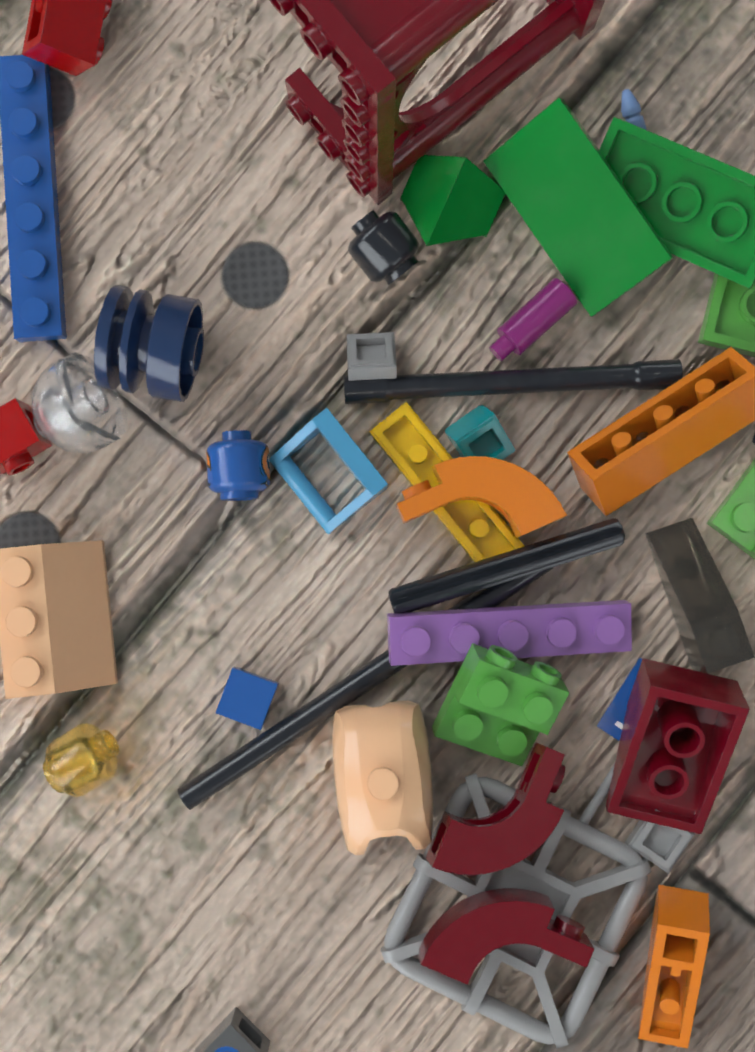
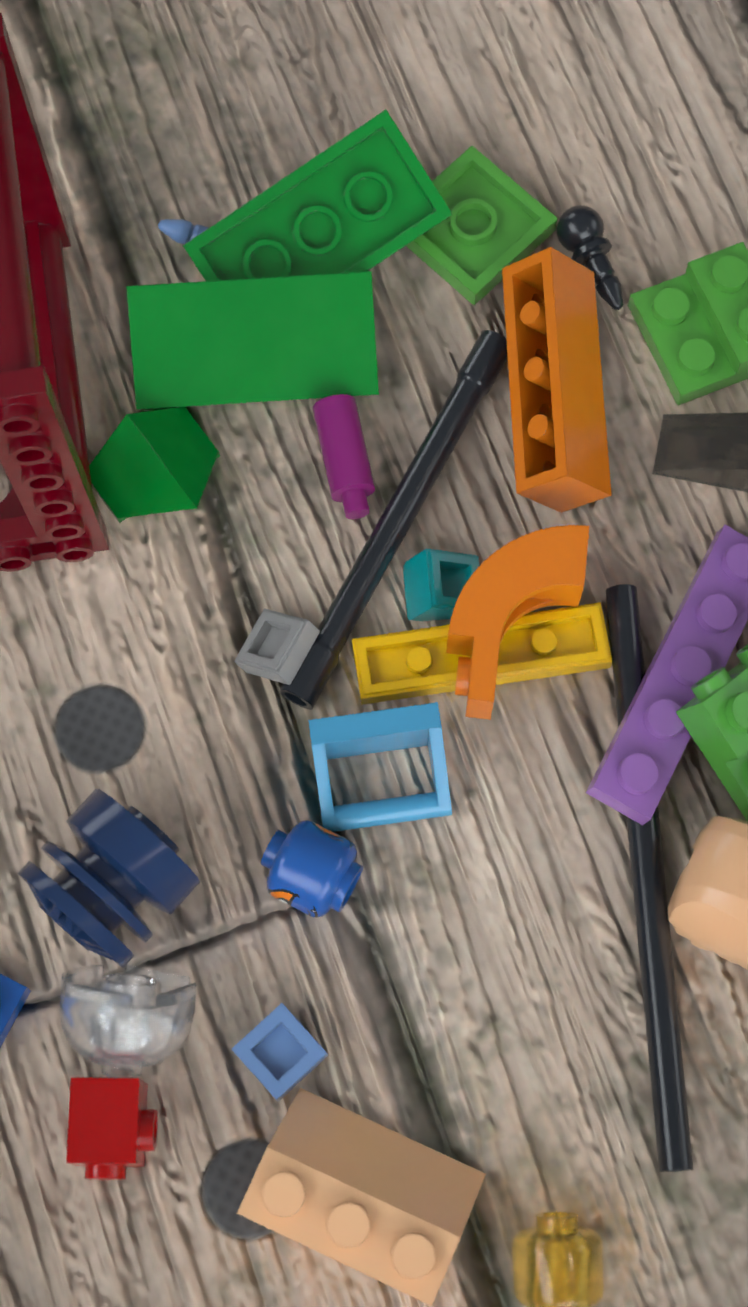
camera: 60 degrees left, 15 degrees down
(112, 515) = (280, 1052): none -> medium blue plate
(247, 698) = (593, 1020): blue tile -> none
(383, 246) = (163, 562): black head -> none
(507, 566) = (606, 634): black axle -> none

